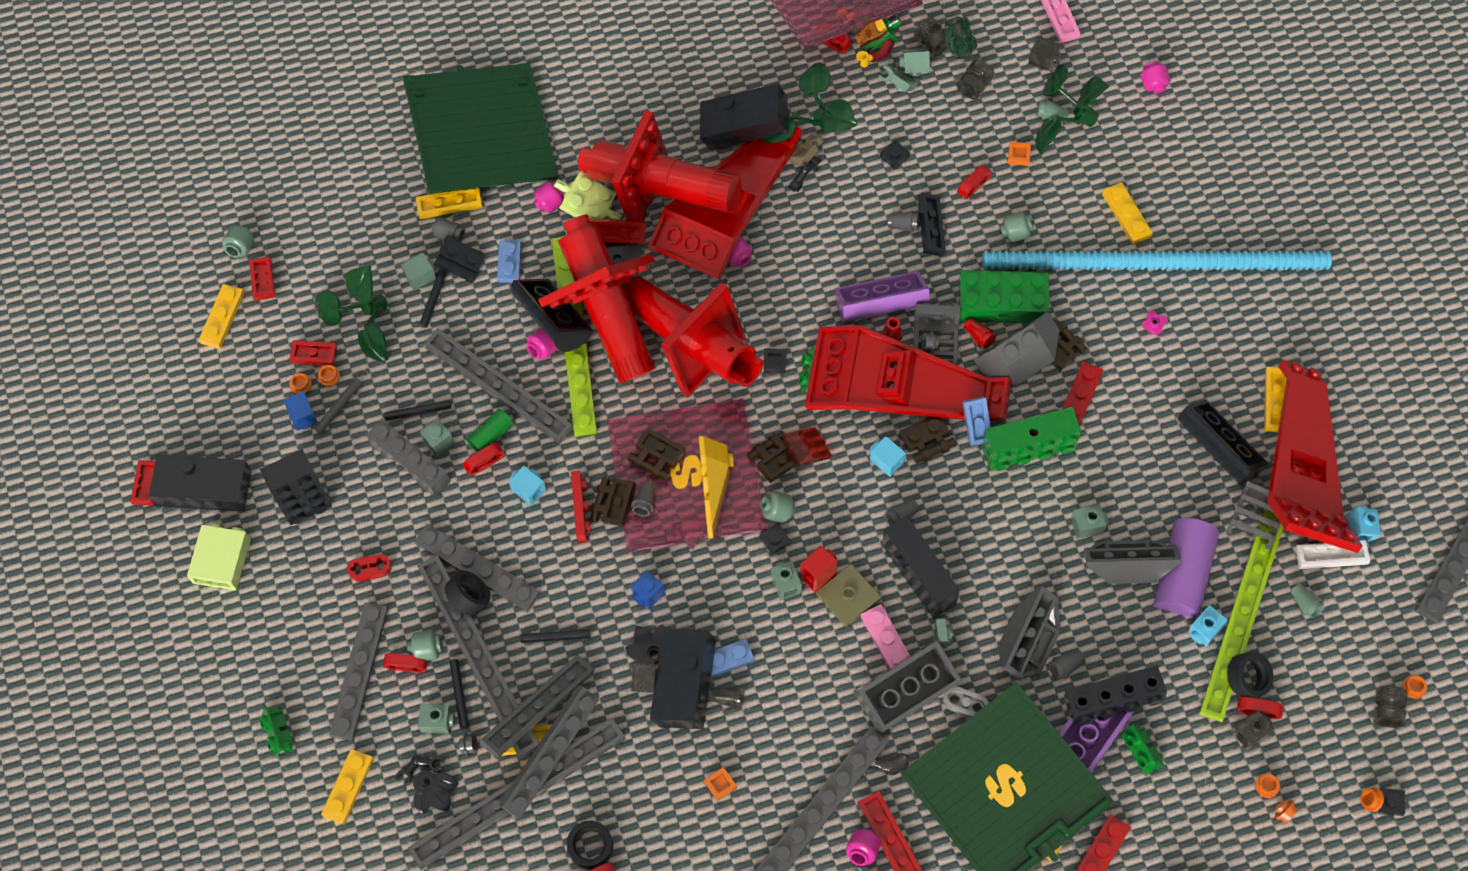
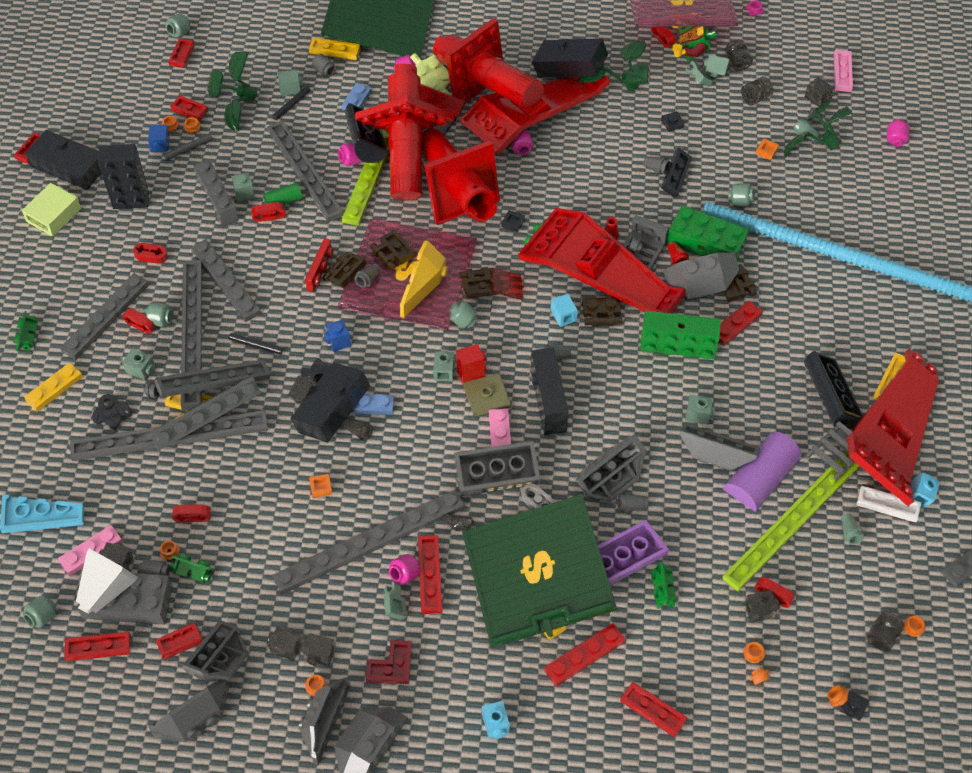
camera: 20 degrees right, 10 degrees down
(221, 316) = (141, 67): yellow plate -> none
(417, 410) = (239, 167): black bar -> none
(417, 761) = (110, 388): black arm -> none
(459, 259) = (321, 83): black plate -> none
(459, 694) = (166, 354): black bar -> none
(460, 599) = (212, 284): black tyre -> none
(527, 485) = (289, 238): medium azure brick -> none
(582, 828) = (199, 477): black tyre -> none
(774, 539) = (451, 337): black plate -> none
(797, 183) = (589, 115): black arm -> none
(806, 151) = (605, 98): dark tan plate -> none
(881, 296) = (612, 205): medium lavender brick -> none
(942, 633) = (542, 442): sand green plate -> none
(959, 37) = (758, 60): clear green plate -> none
(974, 182) = (723, 156): red beam -> none
(976, 419) = (645, 302): medium blue plate -> none
(1115, 695) = (655, 531): black brick -> none
(1127, 213) = (833, 215): yellow plate -> none
(1150, 326) = (816, 297): dark pink plate -> none
(1207, 626) = (759, 516): medium azure brick -> none
(1263, 670) = (790, 561): black tyre -> none

